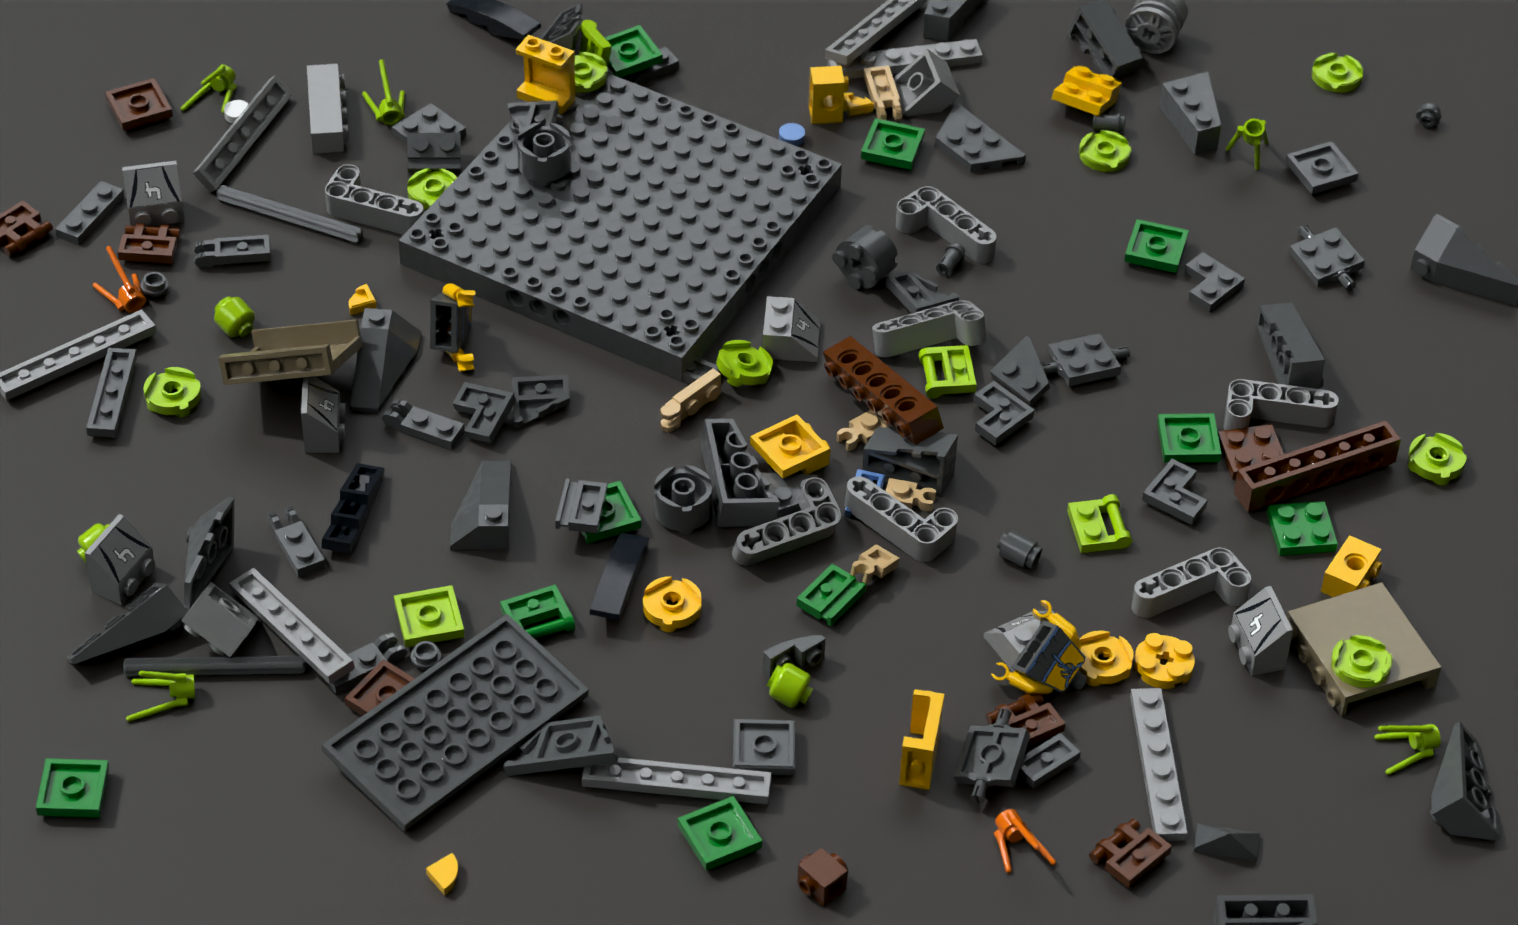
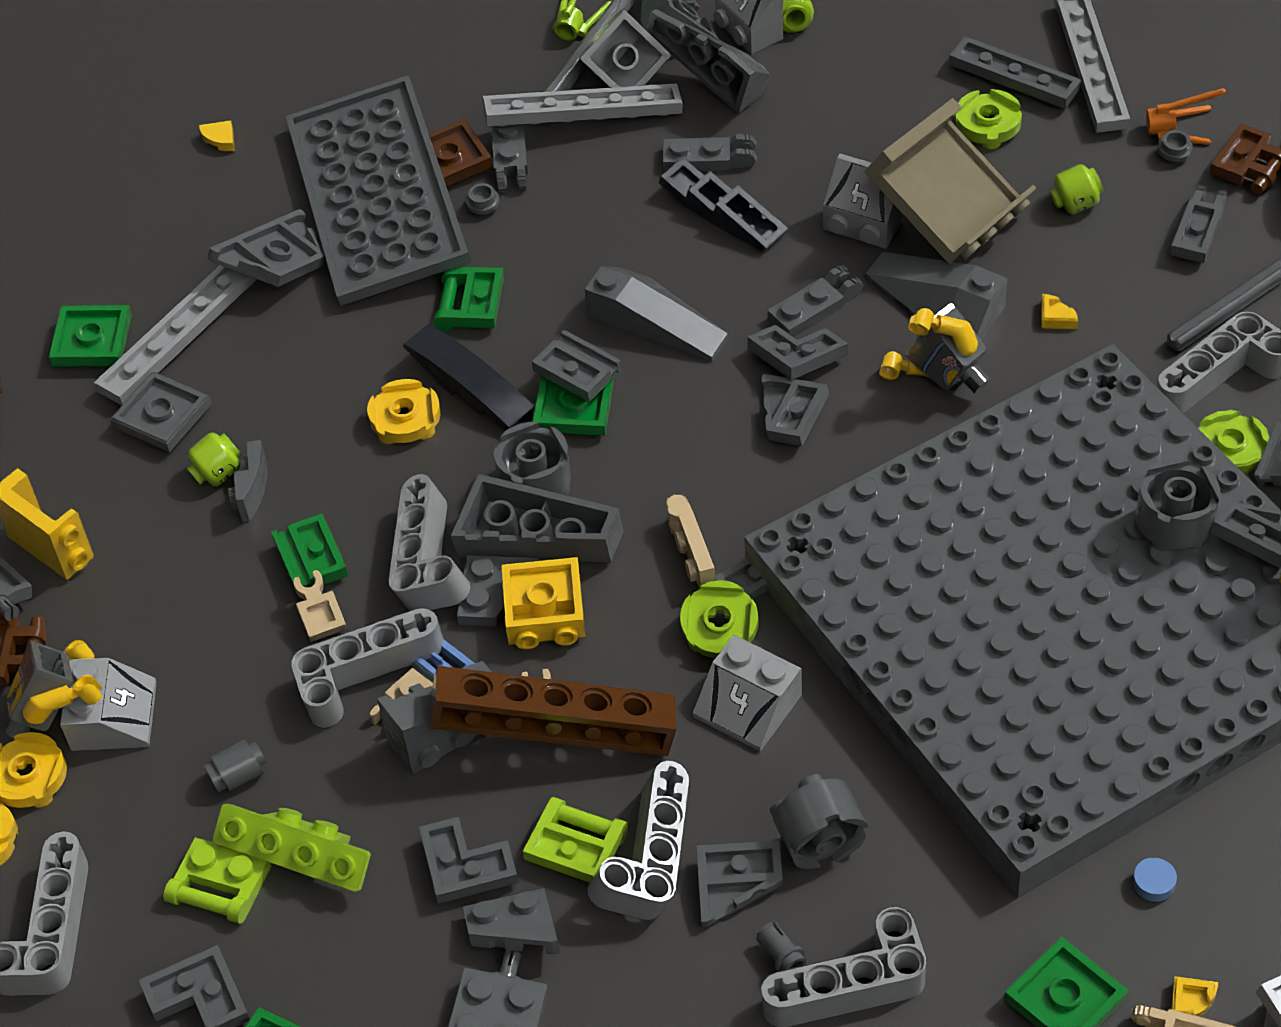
camera: 125 degrees right, 5 degrees up
(429, 616) = (529, 215): lime plate -> none
(827, 94) = (1196, 932): yellow brick -> none
(1049, 487) = (294, 844): none -> lime bracket

